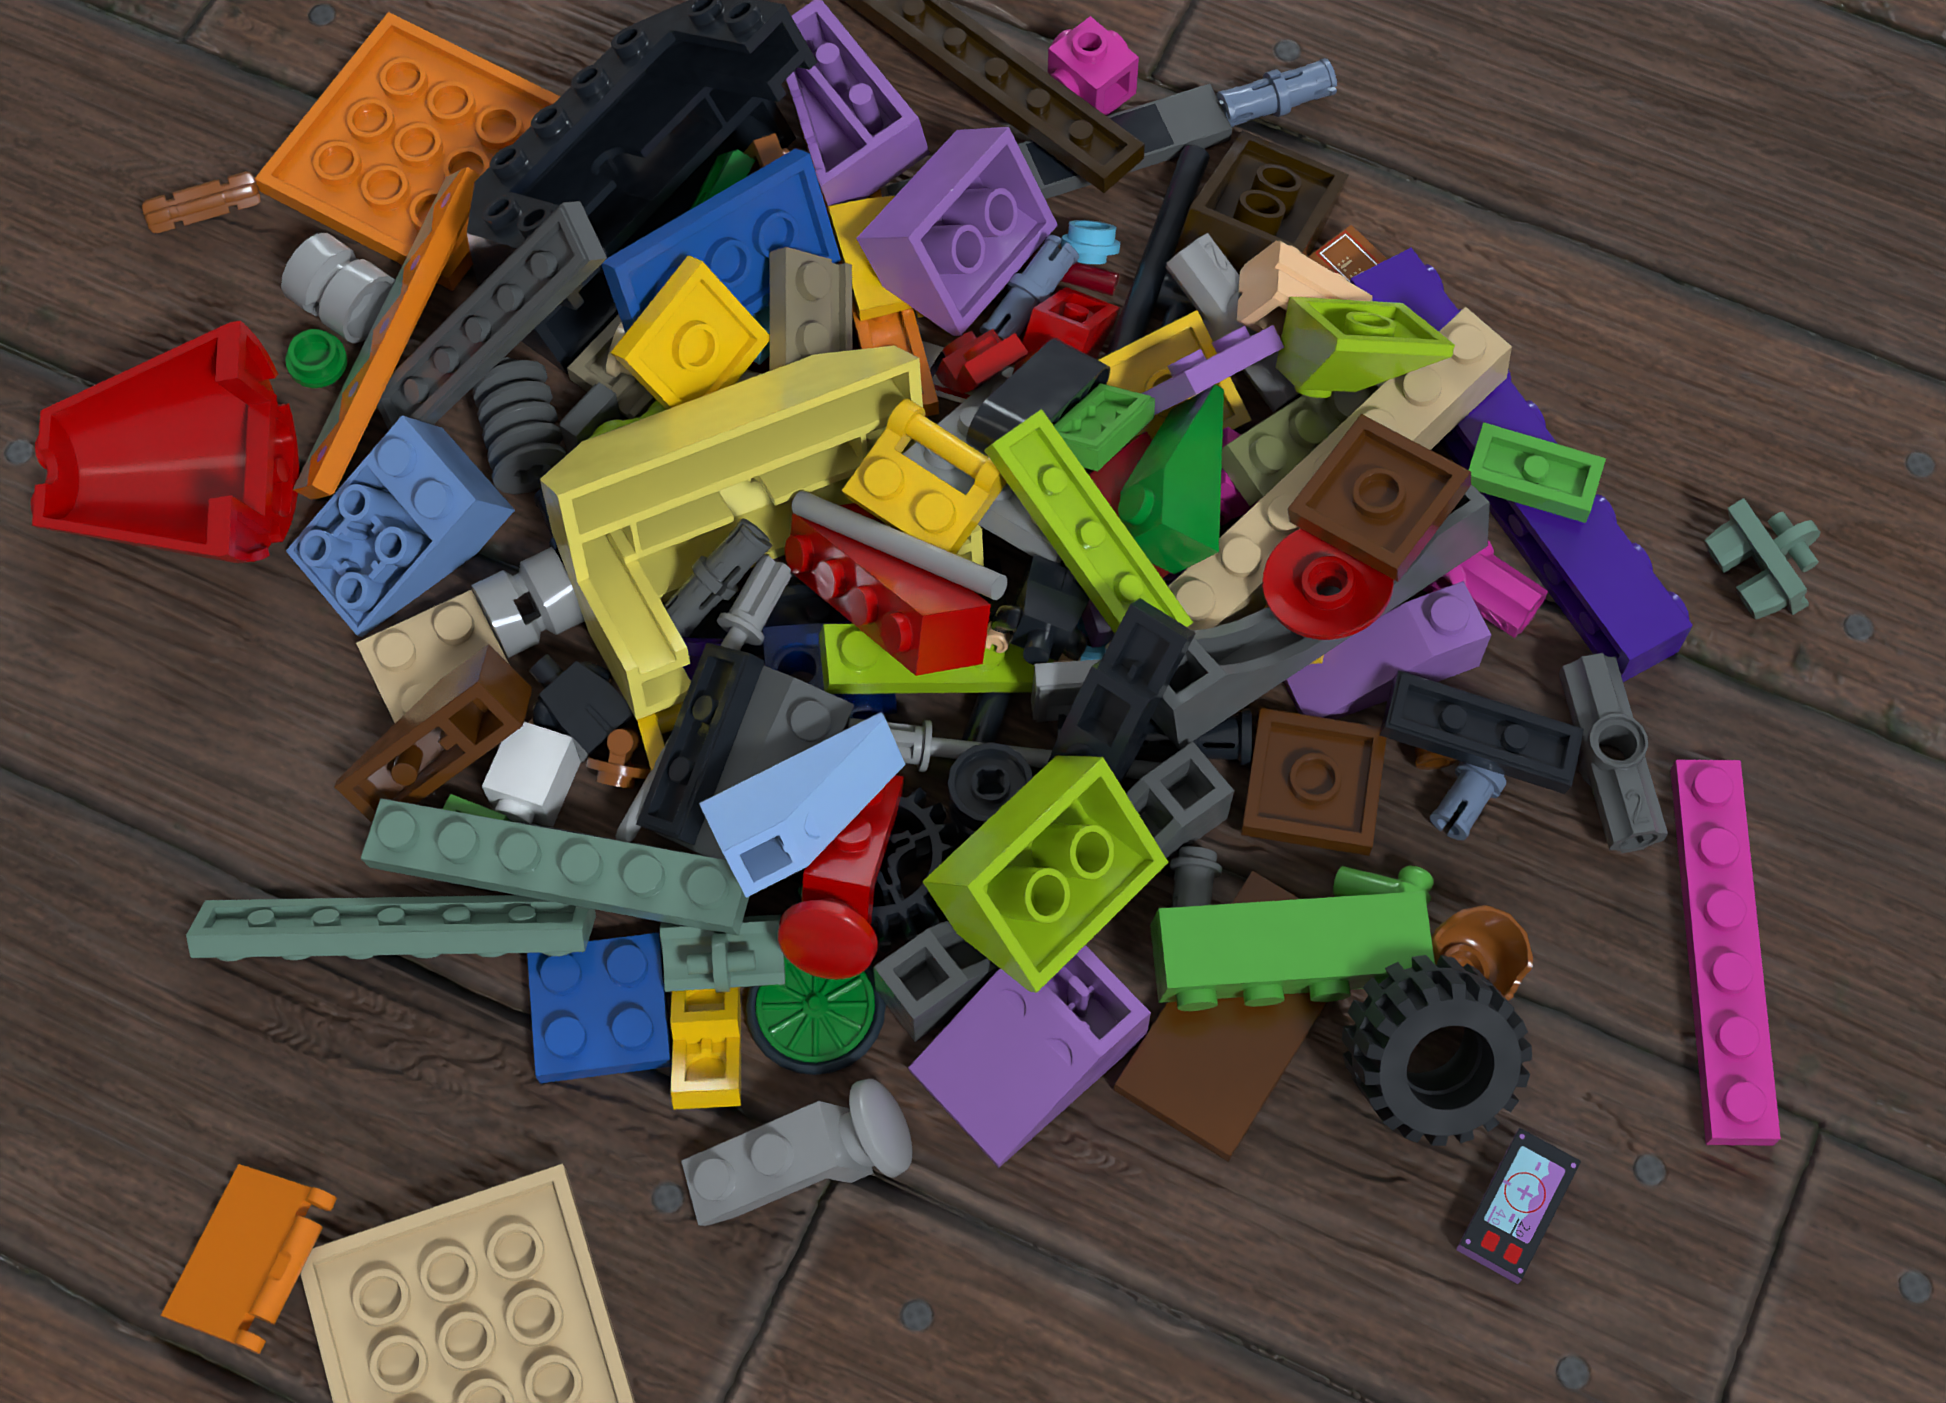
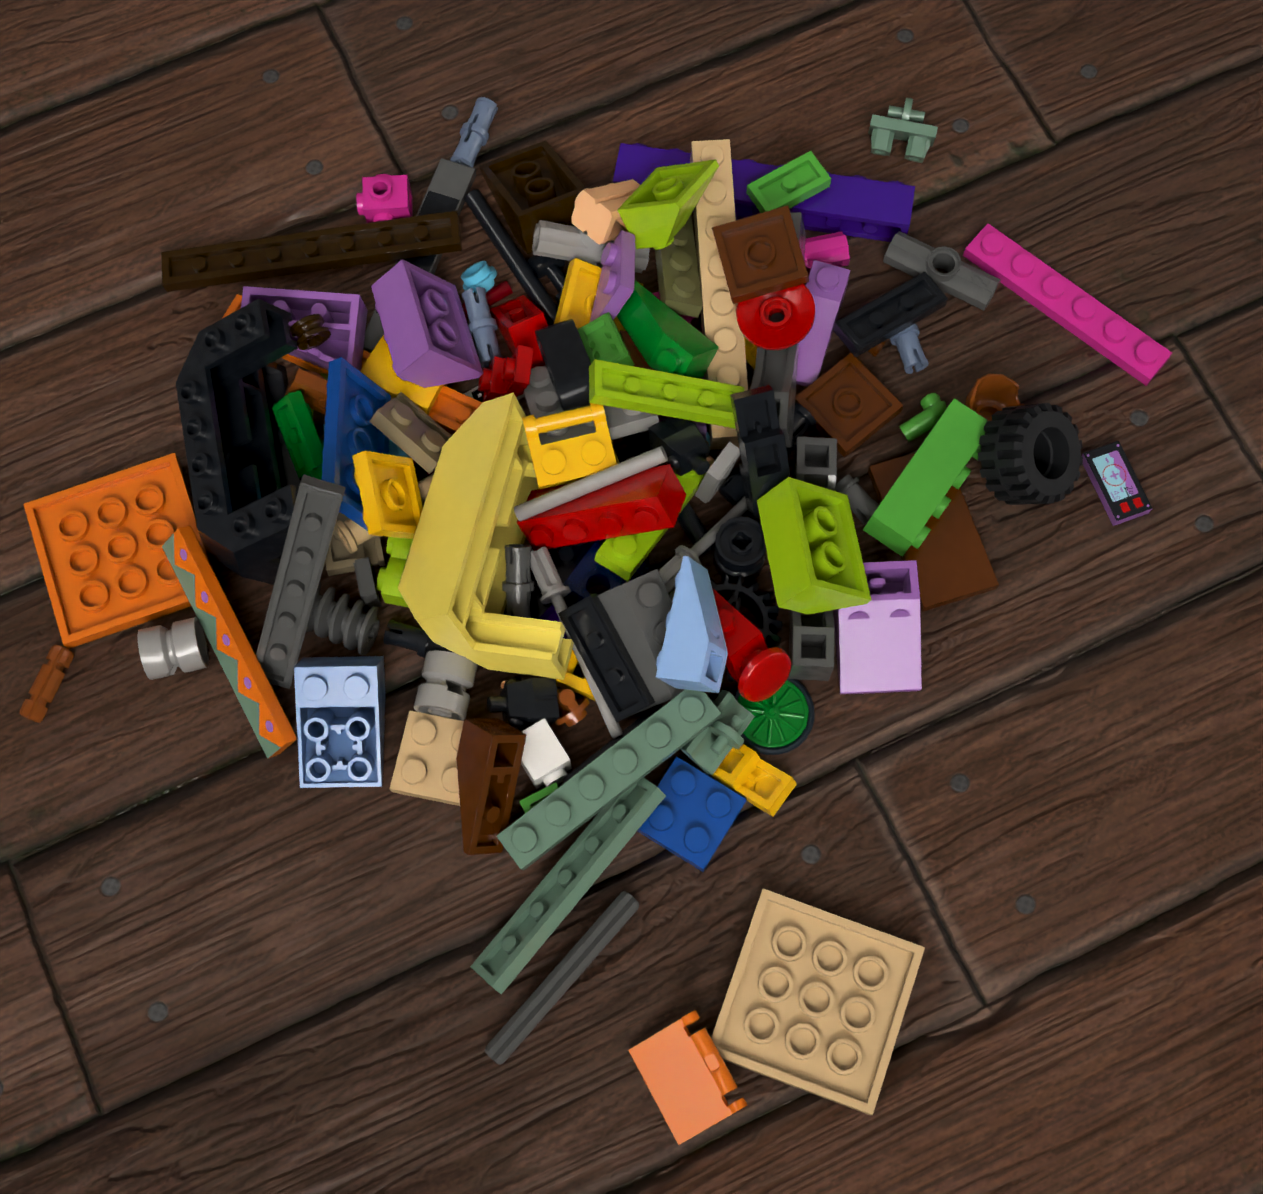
camera: 50 degrees left, 5 degrees up
(175, 454) = (201, 805): red cone -> none
(272, 1016) = (561, 978): none -> dark grey axle
(316, 358) = (201, 692): green plate -> none
(800, 1151) = (845, 777): light grey piece -> none
(818, 102) = (310, 332): none -> dark brown bush
(1348, 254) = (594, 172): dark orange tile -> none

